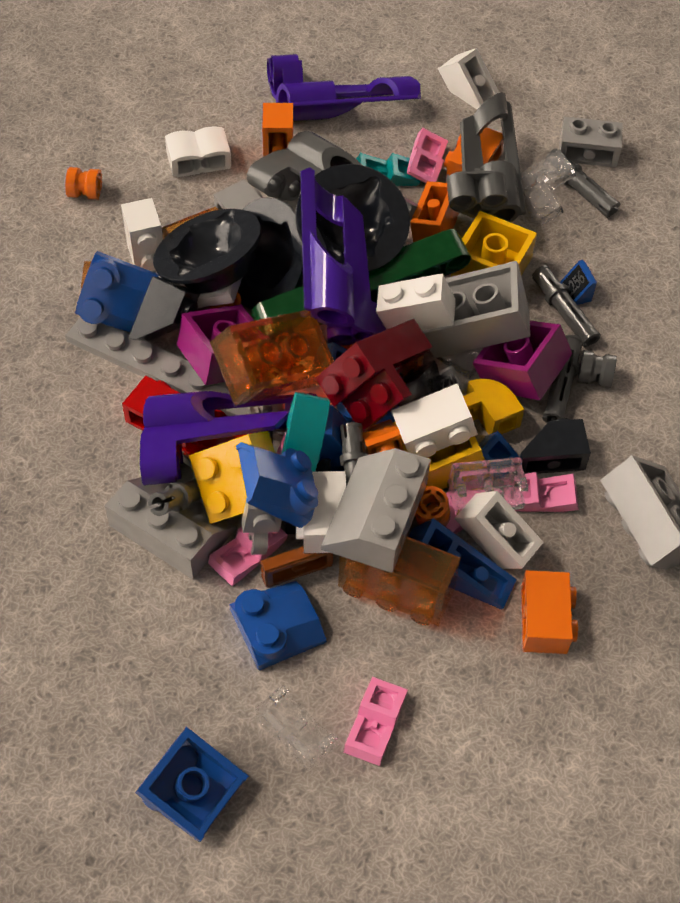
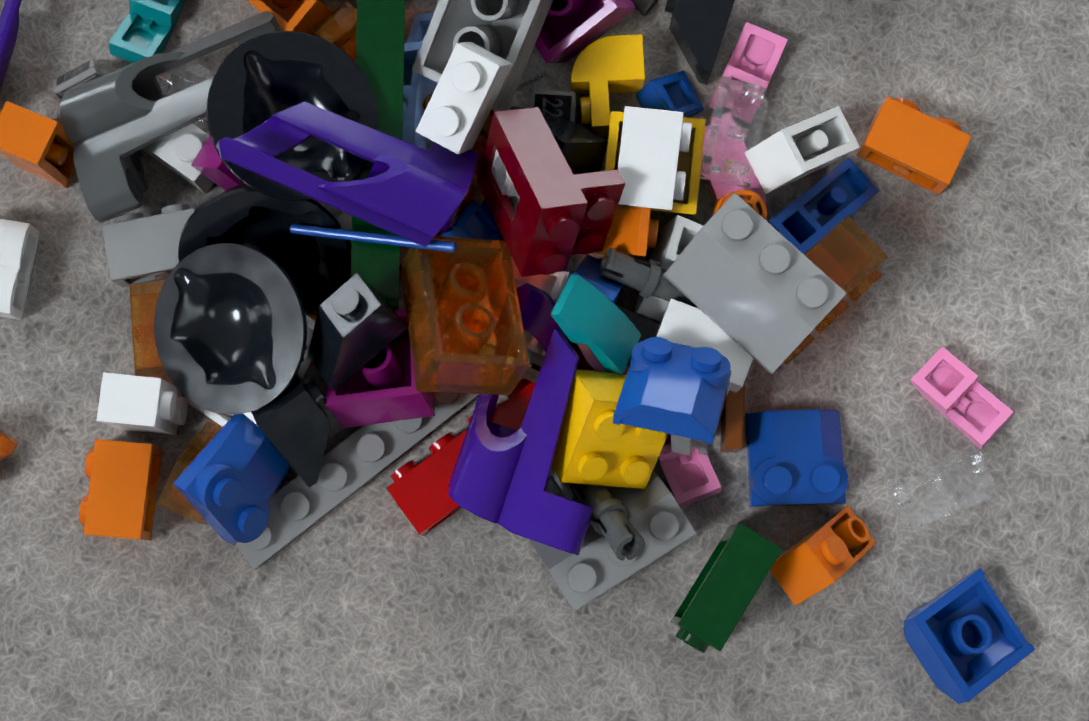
camera: 65 degrees left, 25 degrees up
(81, 245) = (121, 489): none -> orange brick
(158, 594) = (724, 588): none -> dark green window
(213, 660) = (822, 555): none -> orange slope
(237, 302) = (351, 330): none -> black slope
(298, 287) = (369, 237): none -> blue axle

